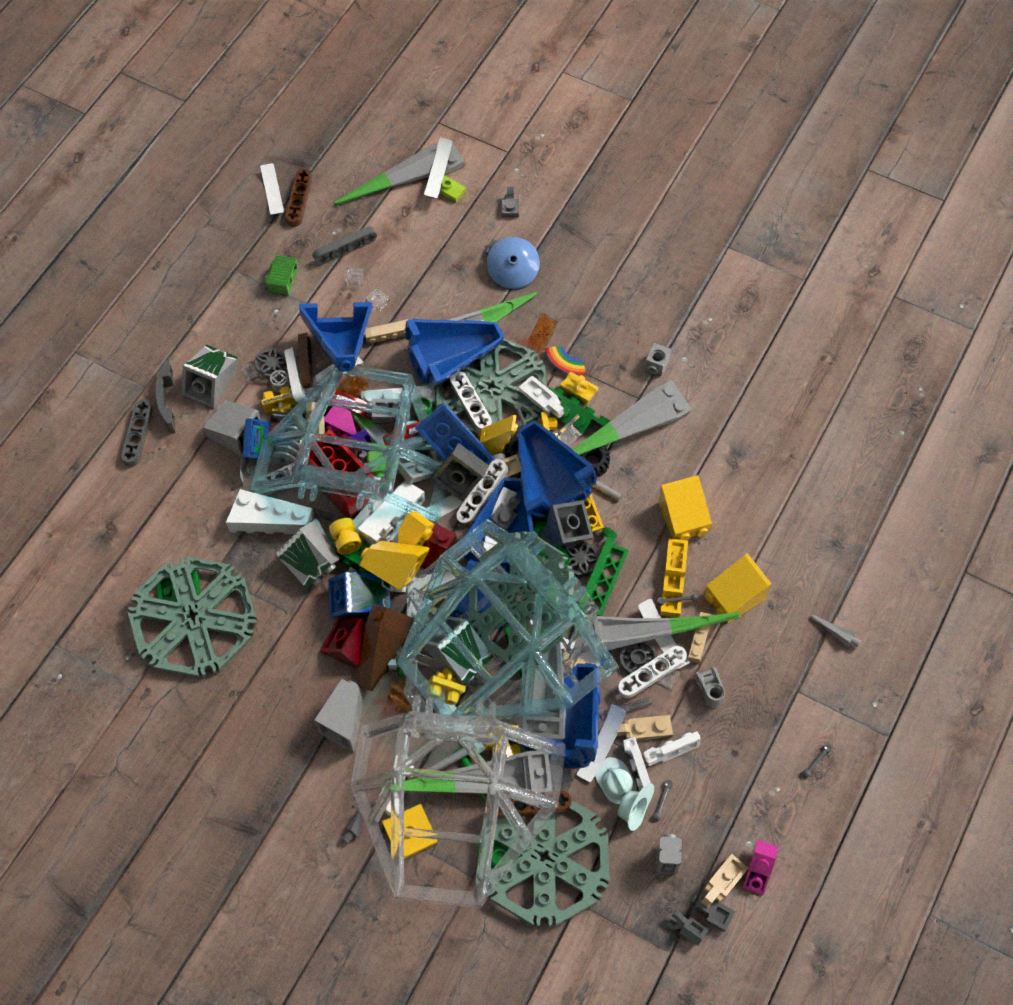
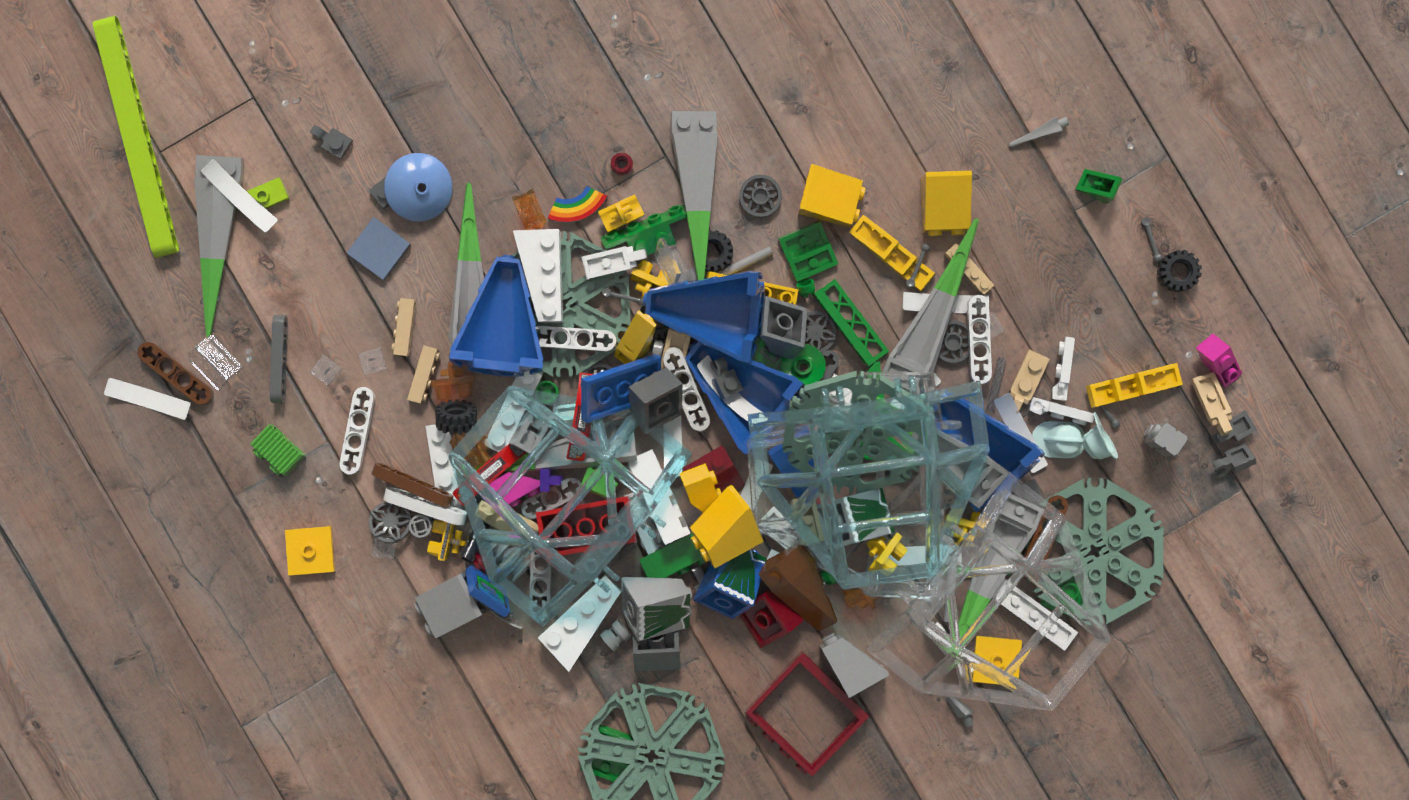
camera: 60 degrees left, 25 degrees up
(137, 432) = (389, 711): dark grey beam -> none
(164, 379) = (340, 644): dark grey slope -> none
(208, 375) = (366, 596): light grey slope -> none
(223, 328) = (309, 550): none -> yellow plate
(255, 694) = (786, 748): none -> dark red window
(270, 544) = (610, 637): none -> light grey wheel
(275, 577) = (657, 652): none -> dark grey slope
(320, 213) = (214, 362): none -> clear panel
(323, 312) = (361, 431): none -> white beam
(341, 336) = (411, 434): blue cone -> none
(345, 536) = (662, 560): yellow wheel -> none
(370, 358) = (455, 416): none -> black tyre
(395, 347) = (442, 386): none -> clear orange hips
(413, 304) = (404, 327): none -> tan piece
(437, 104) = (135, 136): none -> lime beam
(456, 265) = (378, 248): none -> sand blue tile
(463, 852) = (1035, 615): none -> white plate
(505, 358) = (543, 271): none -> white wedge
(613, 368) = (621, 157): none -> dark red plate
(636, 521) = (808, 251): none -> green slope
(653, 470) = (760, 195): none -> dark grey wheel
(659, 353) = (632, 99): light grey brick -> none
(696, 812) = (1134, 385): none -> yellow slope
(710, 683) = (1023, 291): light grey piece -> none
(799, 802) = (1192, 267): none -> black tyre
(829, 695) = (1099, 185): none -> green slope

